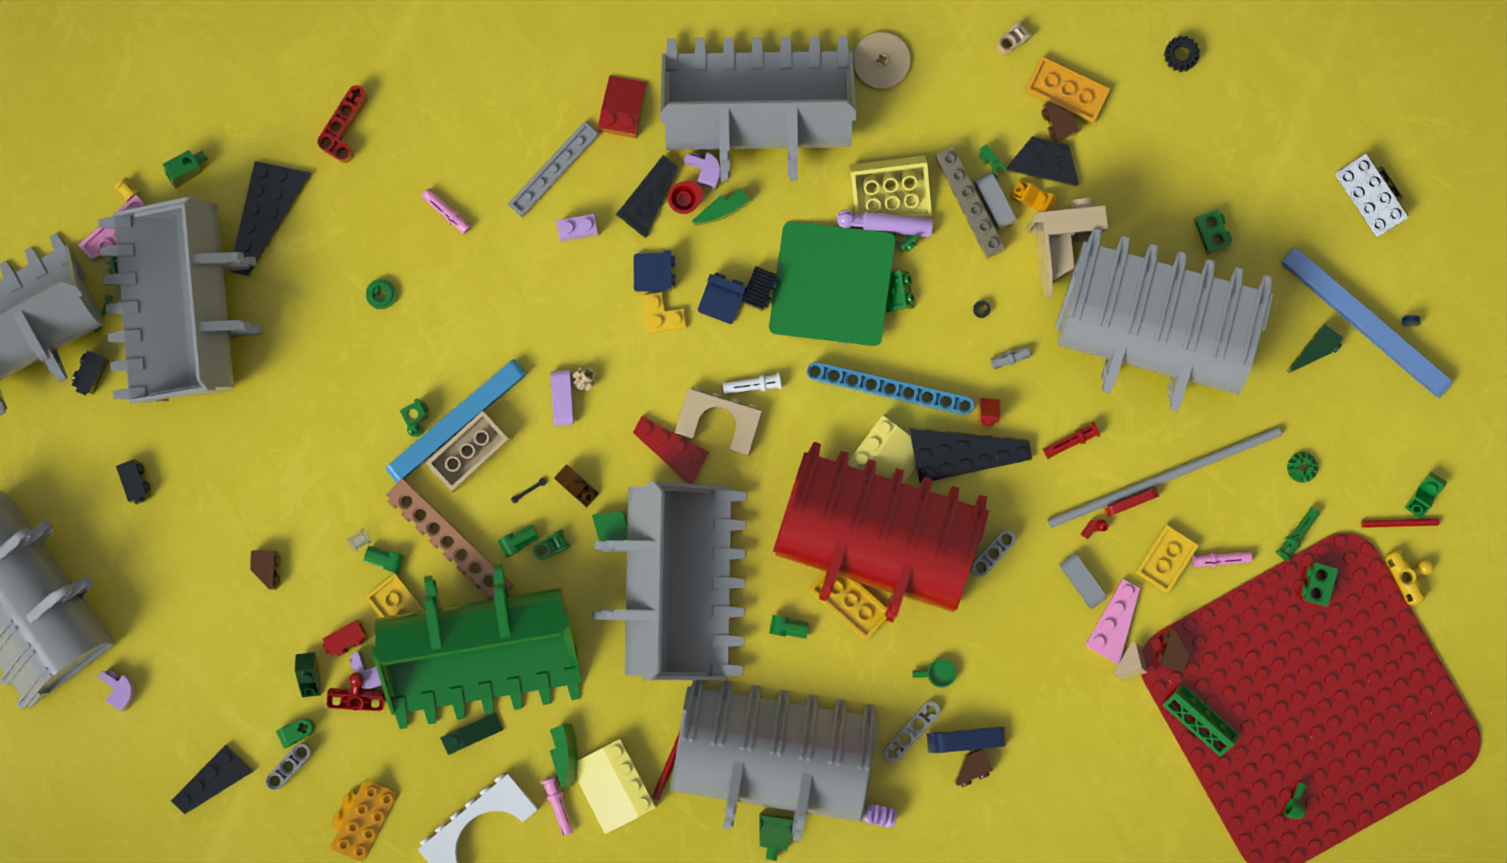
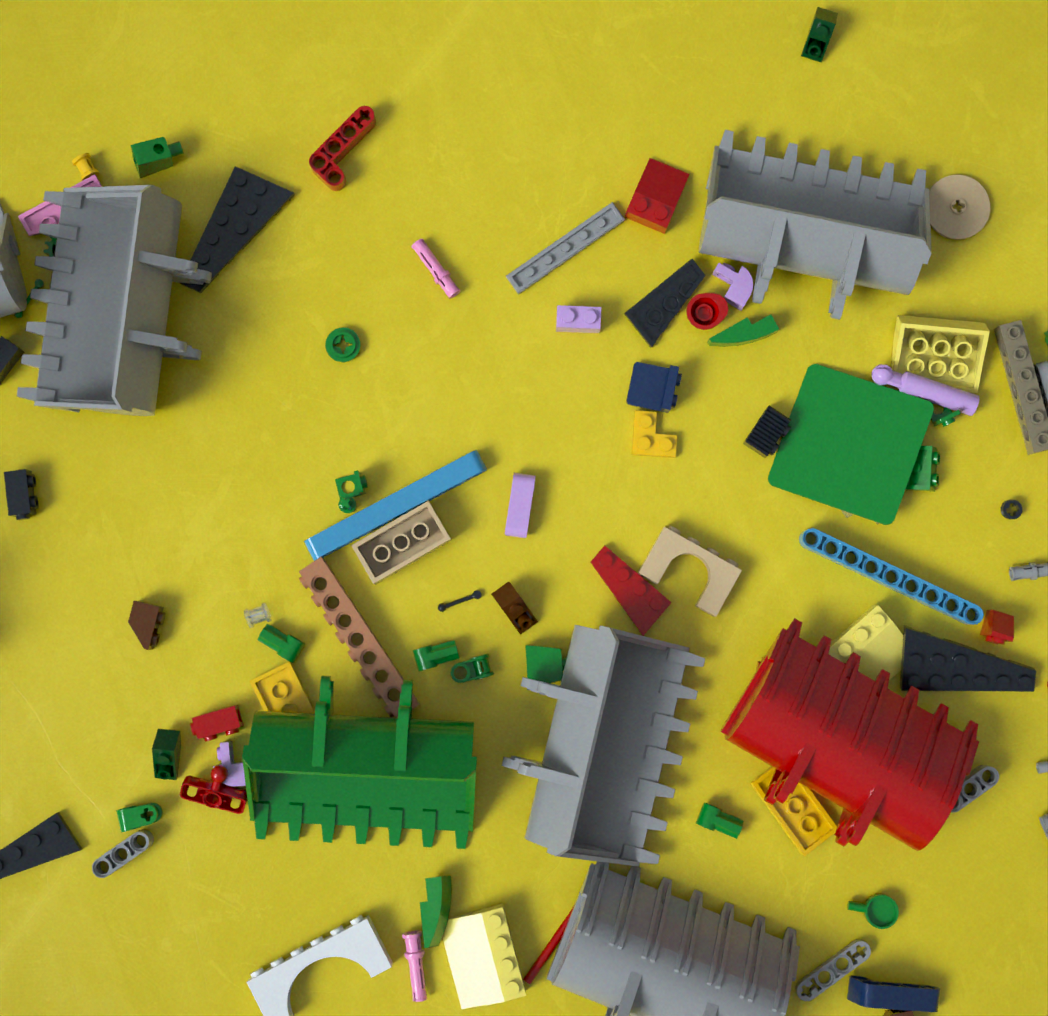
camera: 10 degrees right, 0 degrees up
(361, 819) = (190, 931): light orange bracket -> none
(471, 733) = (335, 862): dark green slope -> none
(584, 378) = (549, 489): tan gear -> none
(721, 298) = (723, 433): dark blue bracket -> none
(730, 387) = (747, 538): white pin -> none

